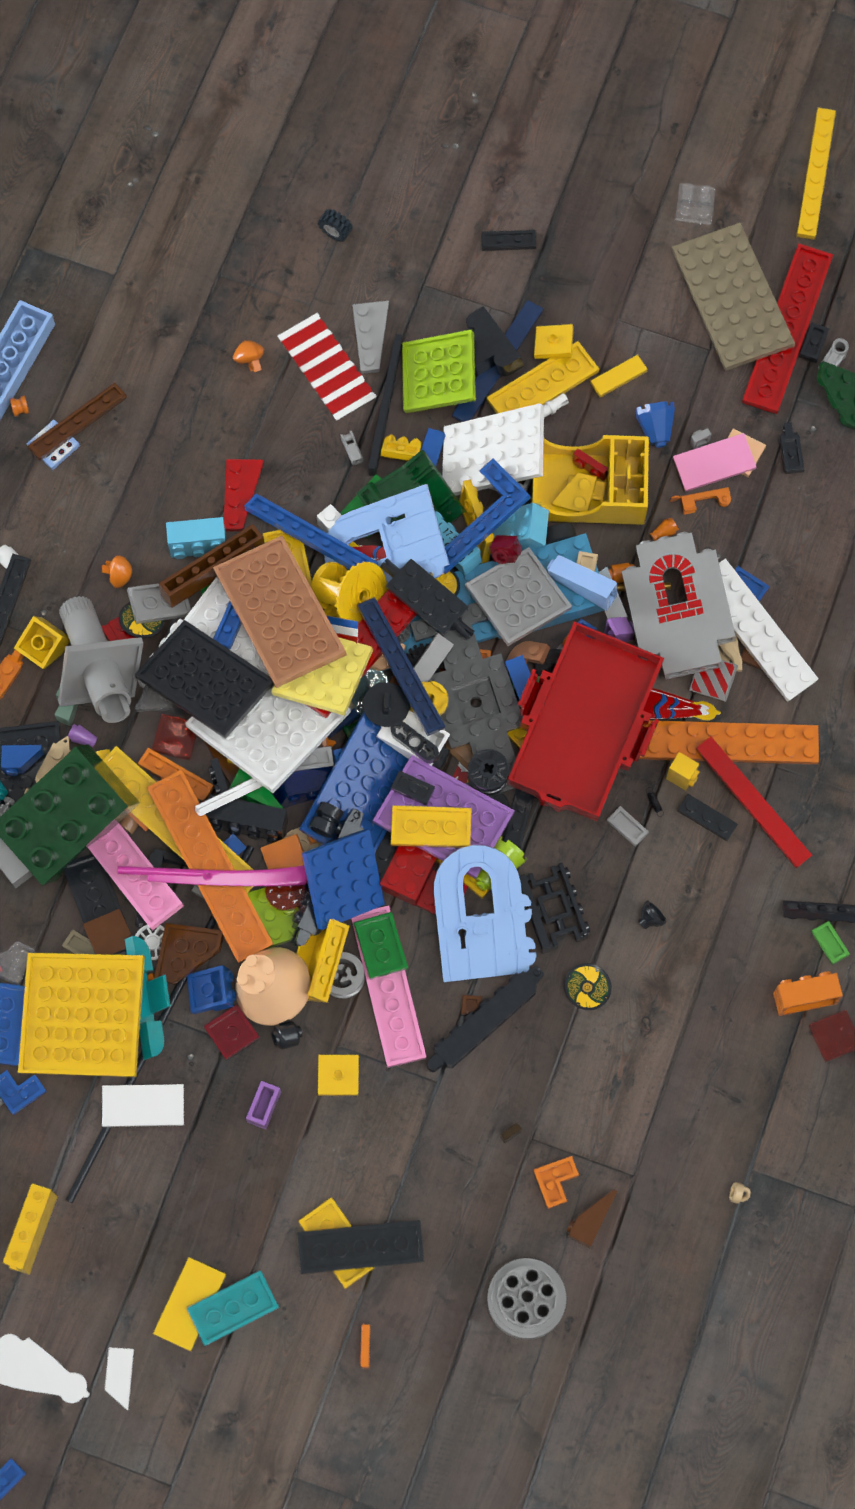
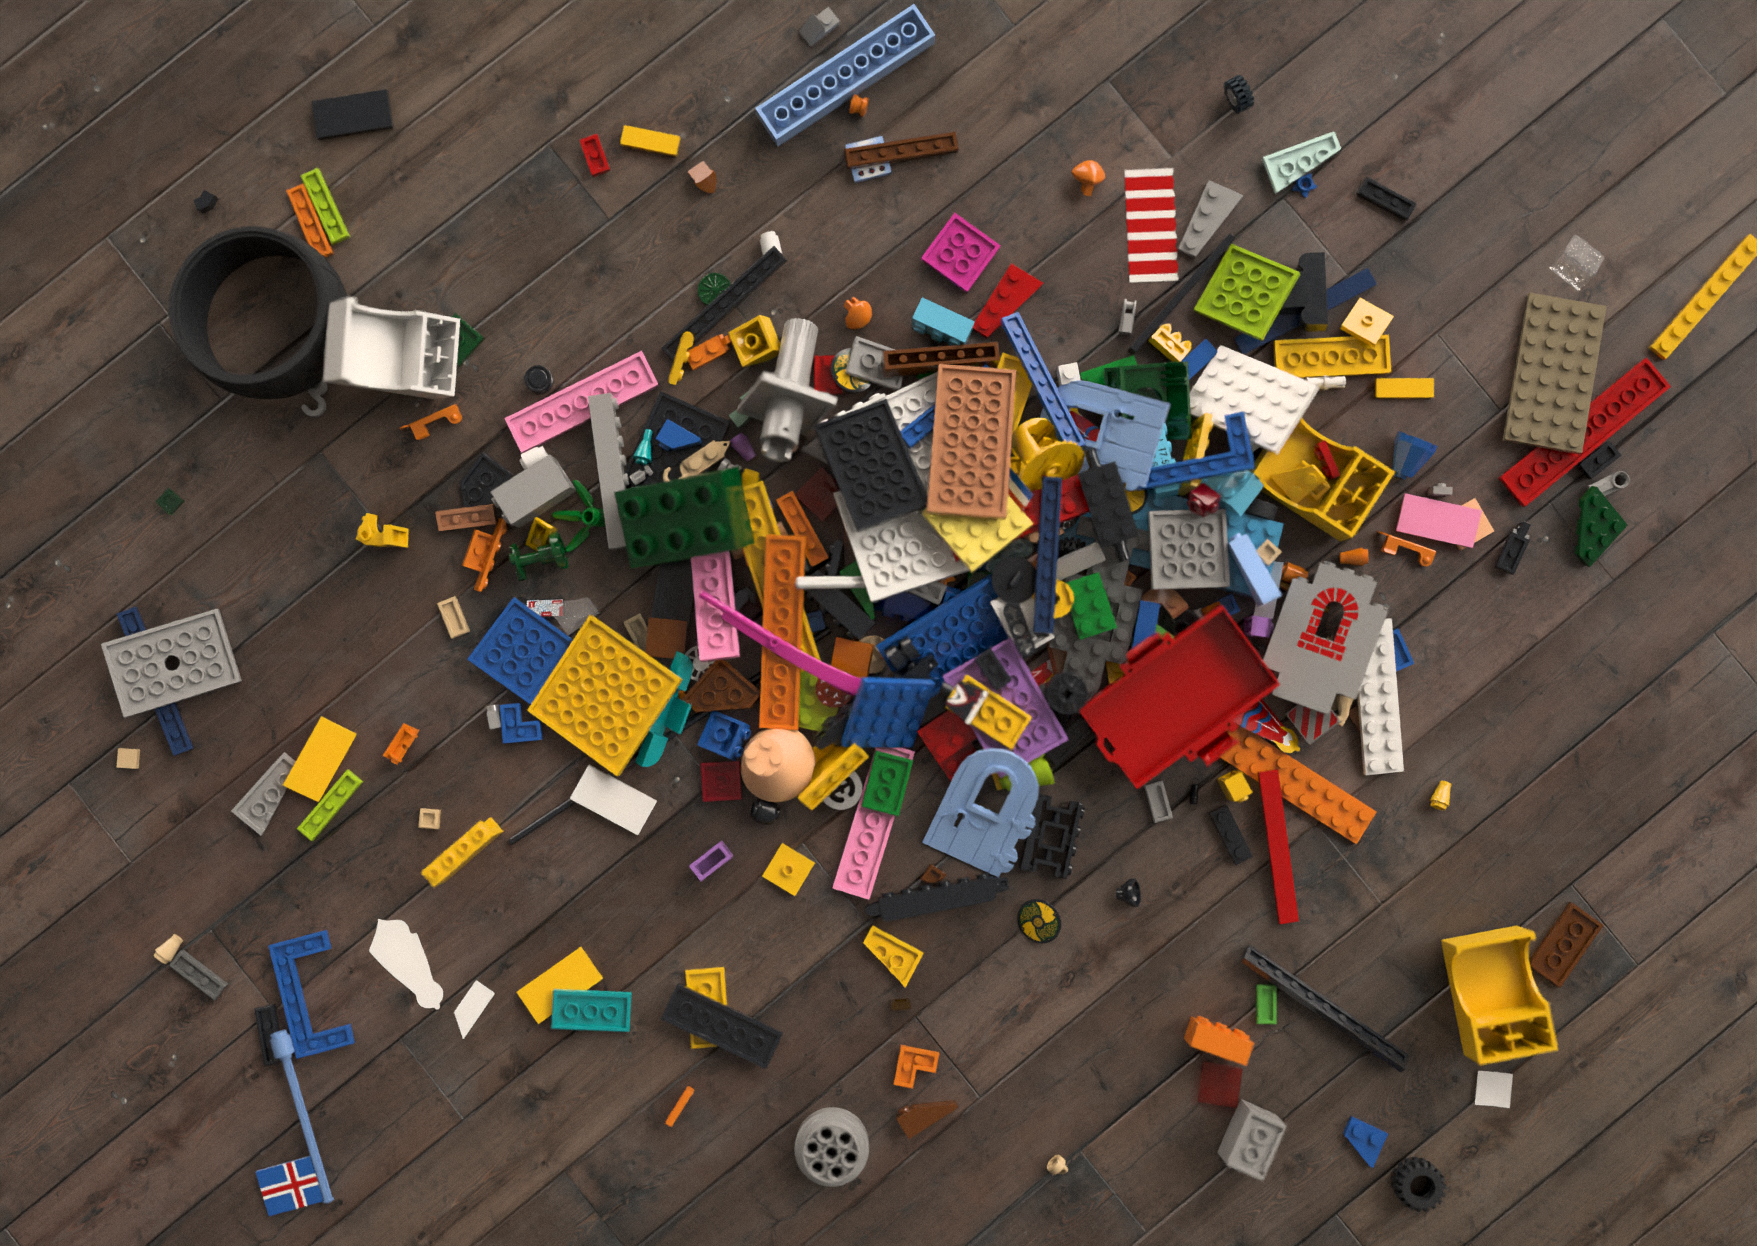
camera: 30 degrees right, 15 degrees up
(177, 474) = (960, 252): none -> dark pink plate
(402, 825) = (963, 699): none -> torso
(416, 250) = (1294, 162): none -> light aqua wing
(434, 261) = (1304, 189): none -> blue plate
(465, 691) = (1090, 606): none -> green plate
(477, 1092) = (894, 953): none -> yellow wing

